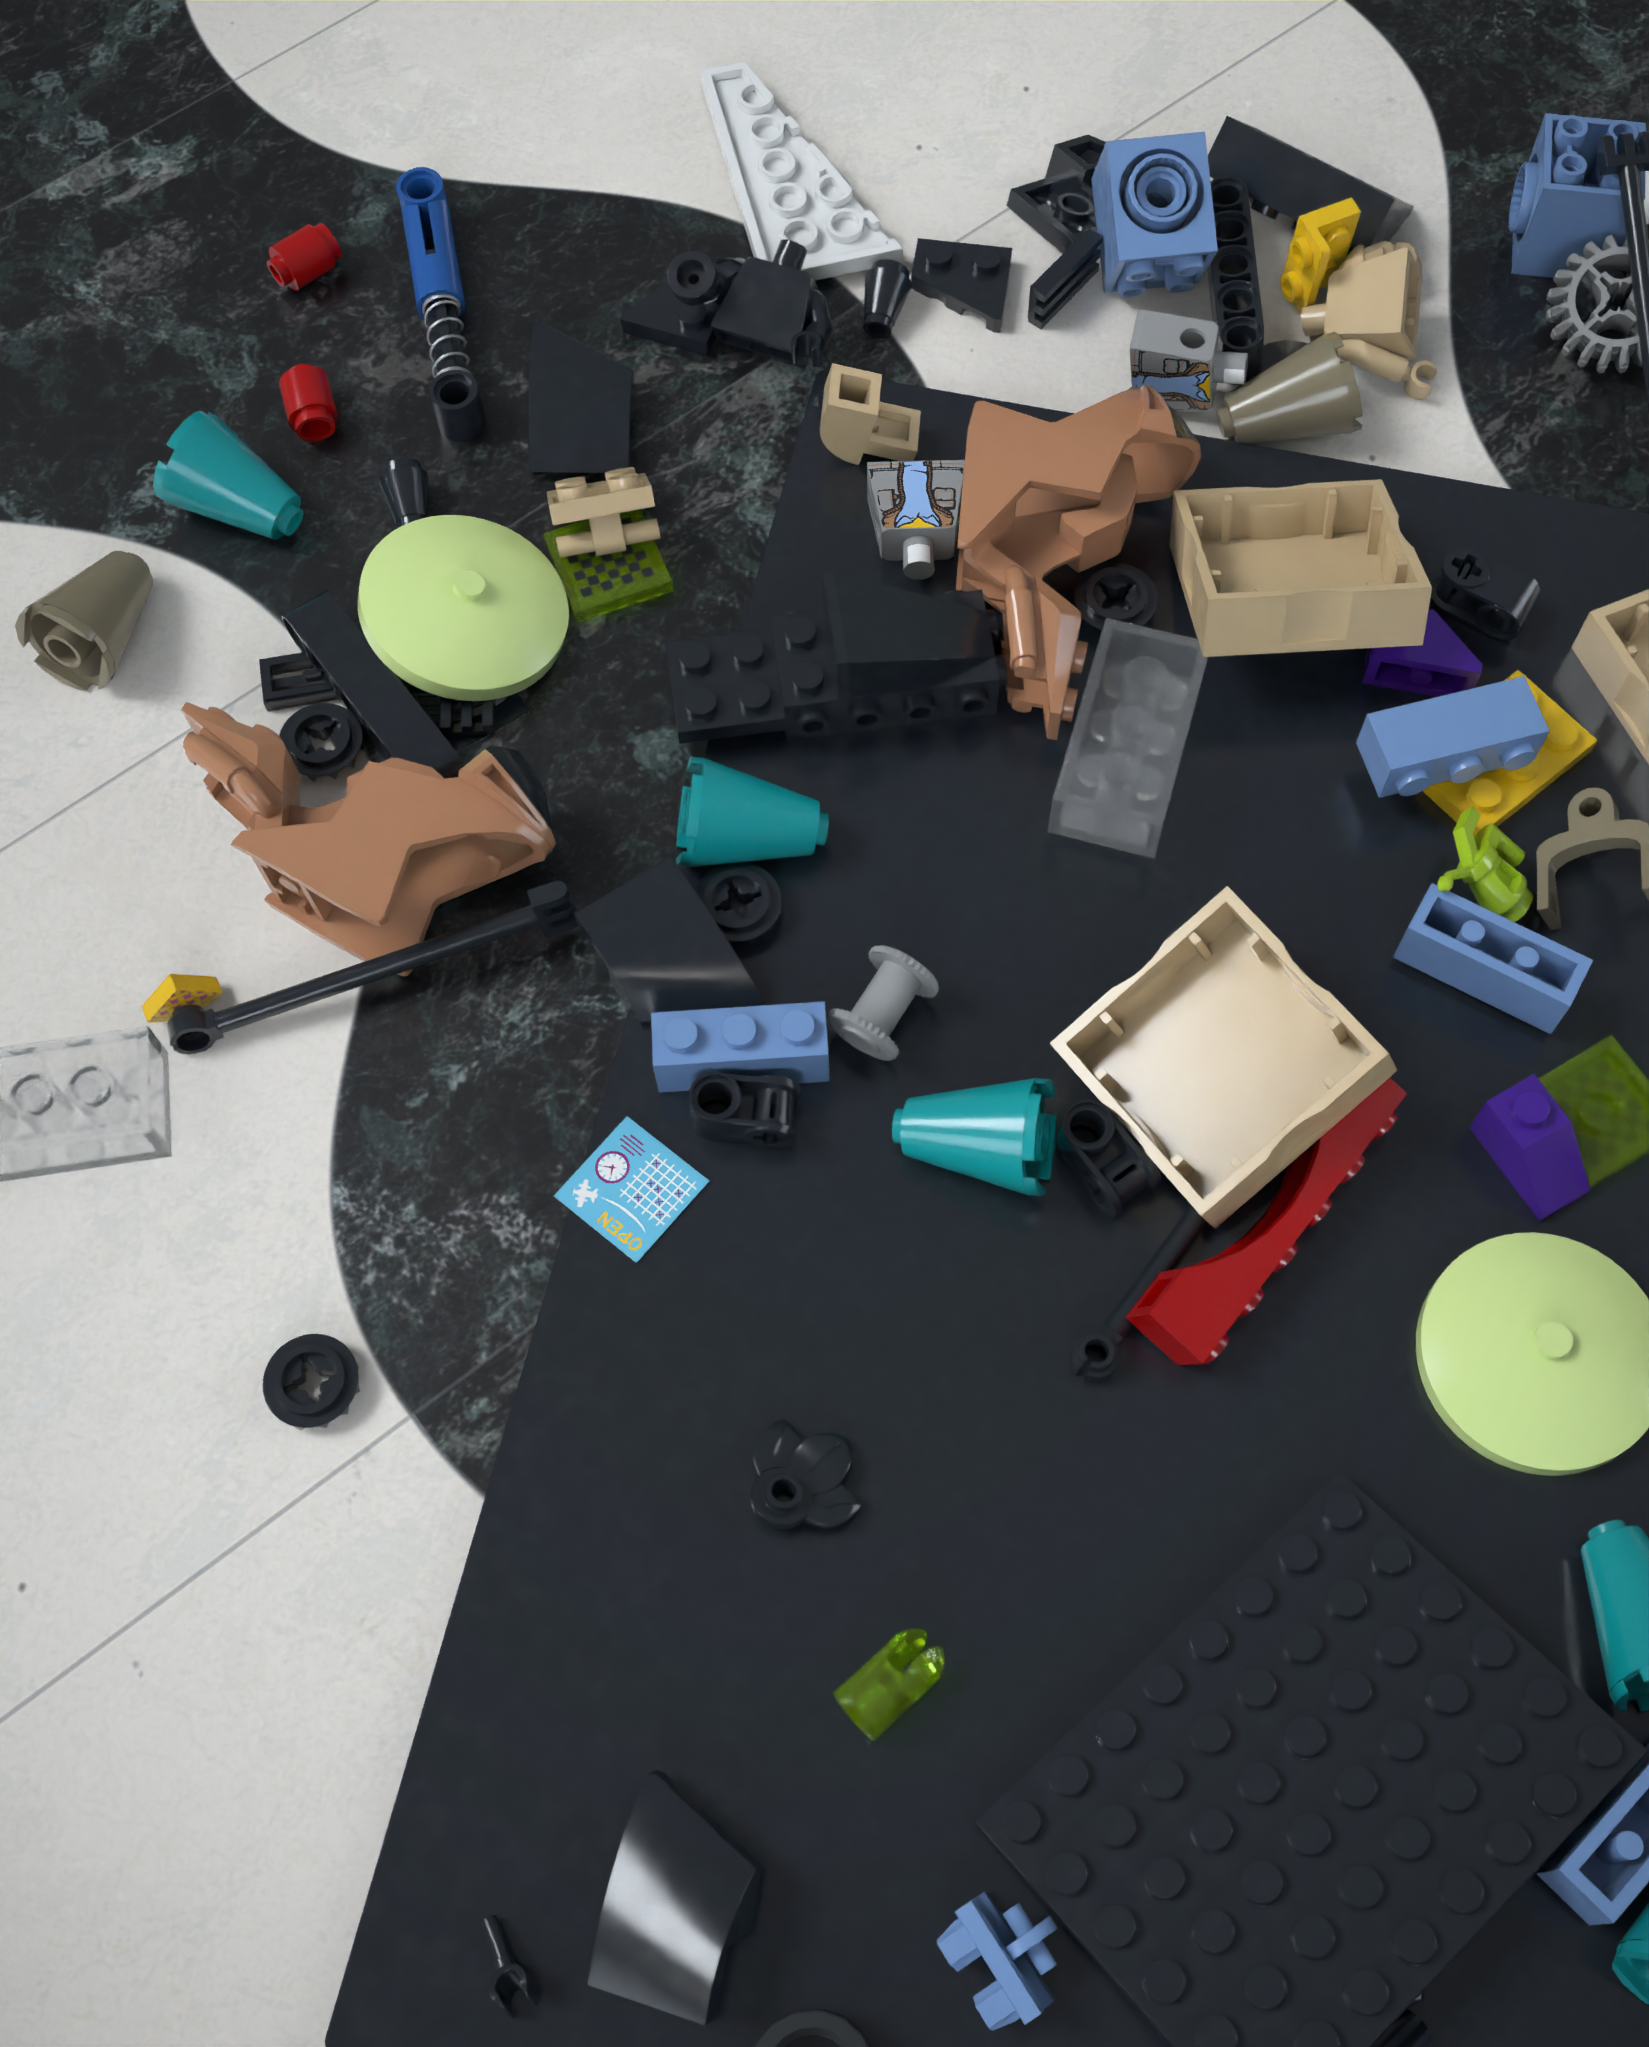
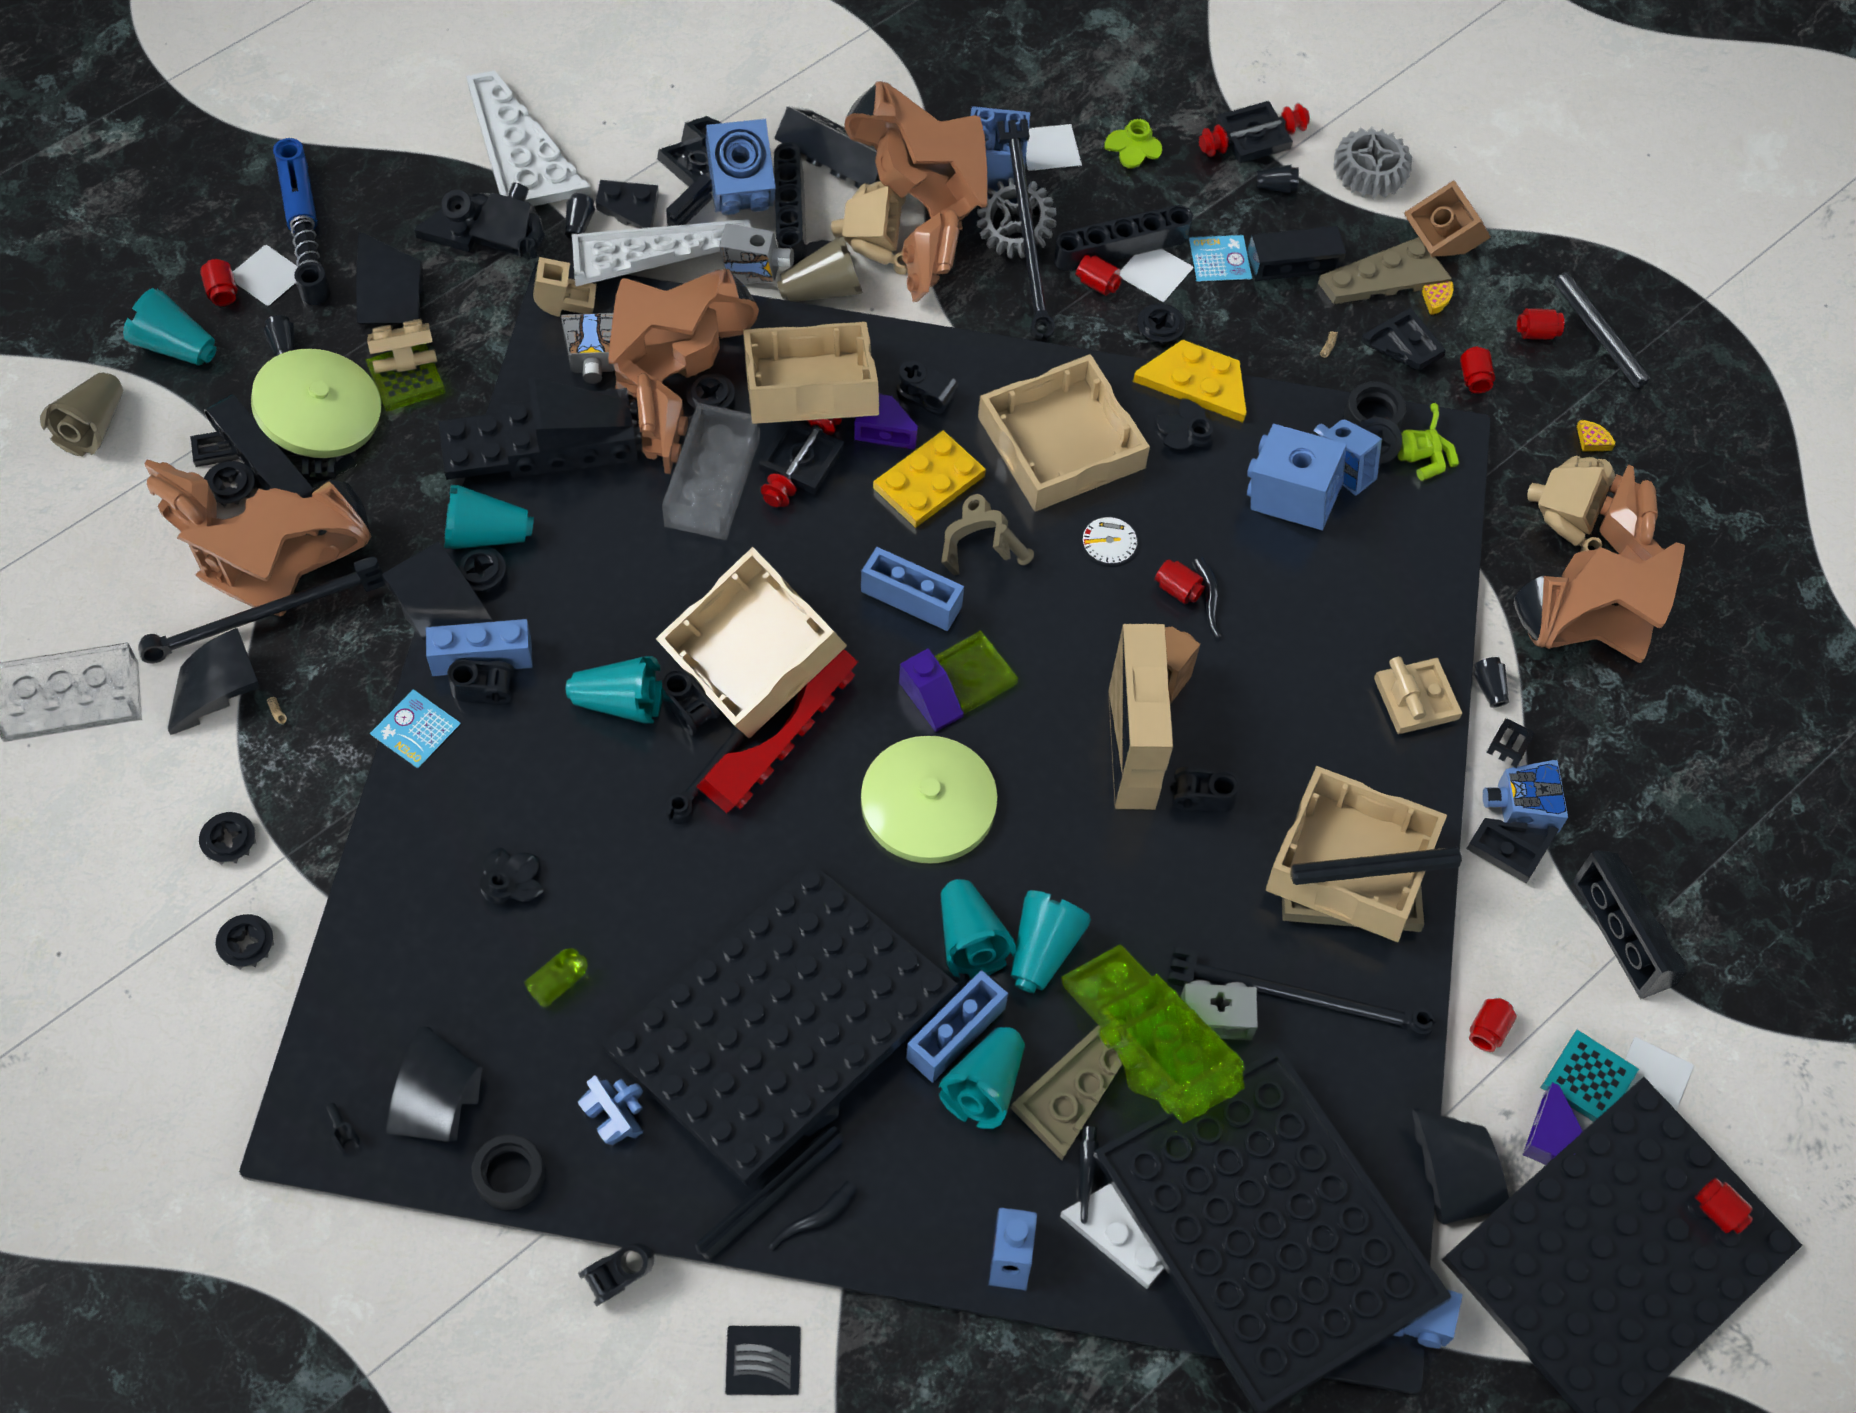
camera: 10 degrees left, 5 degrees down
(180, 991) = (145, 625): yellow tile -> none
(286, 1090) = (211, 678): none -> black slope
(303, 256) = (214, 192): red brick -> none
(322, 1558) = (236, 930): none -> black gear
(383, 391) = (265, 275): none -> white sticker
(398, 1151) = (276, 712): none -> tan leg
(883, 1002) = (563, 621): light grey hose -> none
(971, 356) = (623, 252): none -> white wing
(1274, 719) = (799, 459): none -> black plate
(1317, 251) = (839, 186): yellow bracket -> none
(1452, 737) = (896, 467): medium blue brick -> none
(1471, 225) = (932, 161): none -> nougat piece
(1489, 868) = (915, 540): lime piece -> none

